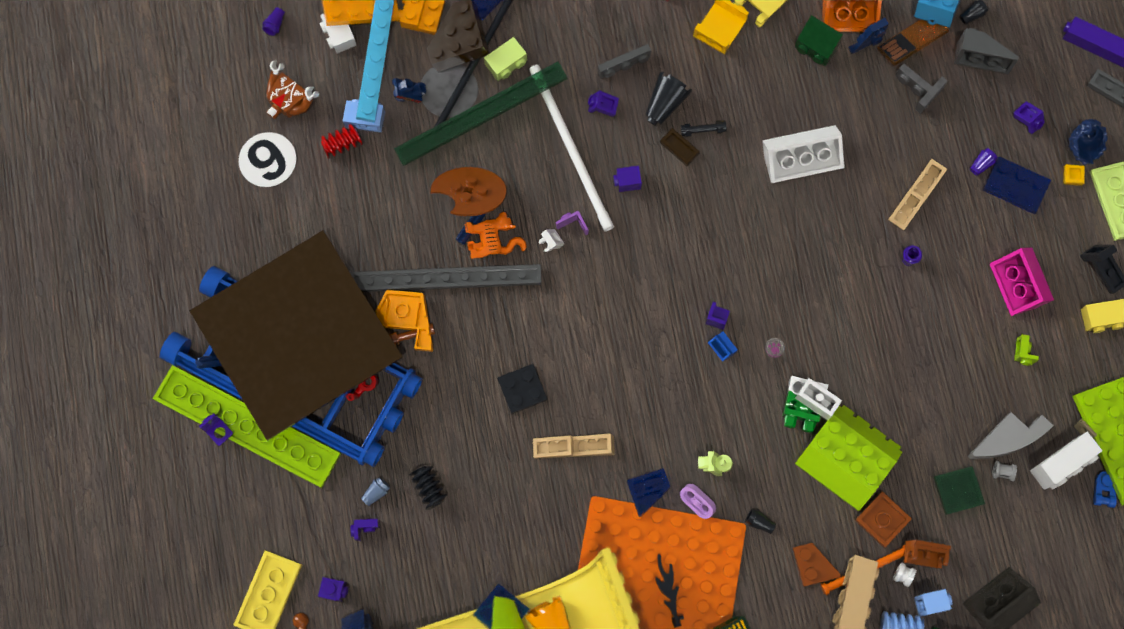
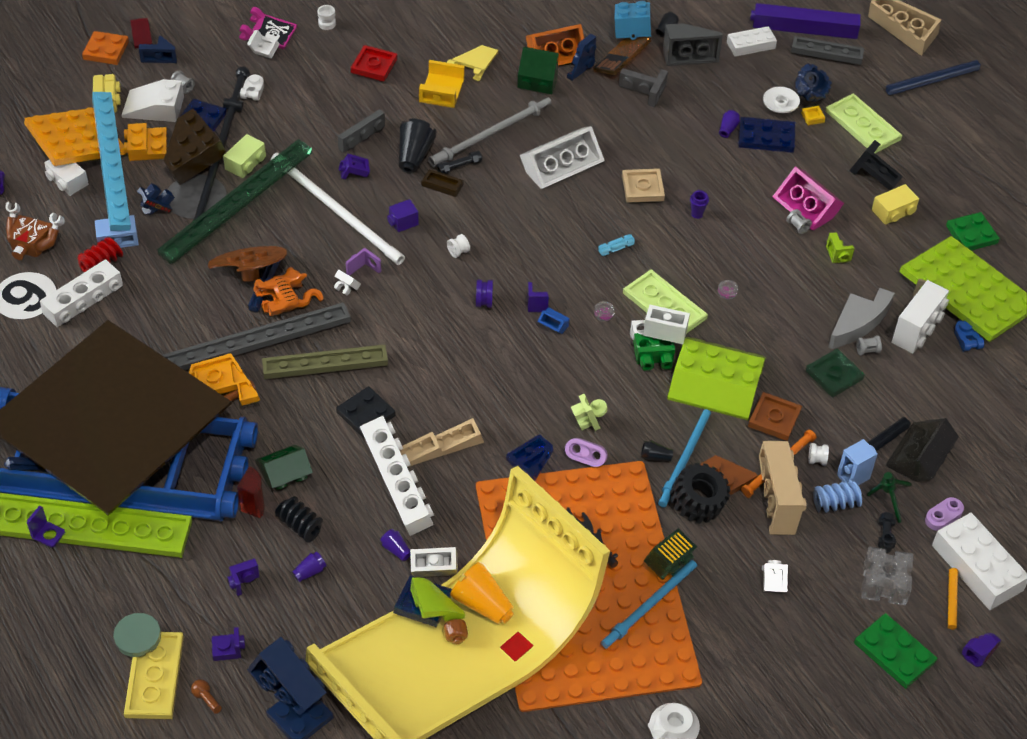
camera: 25 degrees left, 25 degrees down
(263, 556) = (137, 634): none -> sand green tile
(305, 174) = (81, 293): none -> white brick
(363, 387) = (190, 461): red plate -> none
(375, 491) = (243, 540): sand blue cone -> none
(395, 451) = (251, 493): none -> clear red brick
(423, 536) = (309, 567): none -> dark purple cone
(432, 426) = (284, 466): none -> dark green slope
(500, 538) = (395, 544): none -> dark purple cone
(503, 324) = (324, 361): none -> olive plate
(517, 421) = (413, 519): none -> white brick
(525, 573) = (434, 562): none -> white brick
(666, 231) = (458, 245): none -> white wheel
(670, 296) = (484, 293): none -> dark purple wheel
(696, 114) = (446, 154): none -> light grey bar
(758, 561) = (684, 457): none -> dark azure bar
(795, 583) = (694, 505): none -> black tyre
(814, 275) = (616, 244): none -> medium azure axle
(834, 357) = (654, 290): none -> yellowish green tile
(868, 212) = (643, 185): none -> tan plate
(899, 360) = (727, 289): none -> clear tile
(917, 194) = (681, 161): tan slope -> none
(926, 553) = (830, 427): dark orange hinge -> none
(975, 575) = (890, 433): none -> black axle
(1001, 305) = (799, 221): none -> light grey bush
(1030, 116) = (753, 81): dark purple bracket -> none
(1049, 140) = (781, 99): none -> white dish
(1052, 59) = (751, 41): none -> white piece

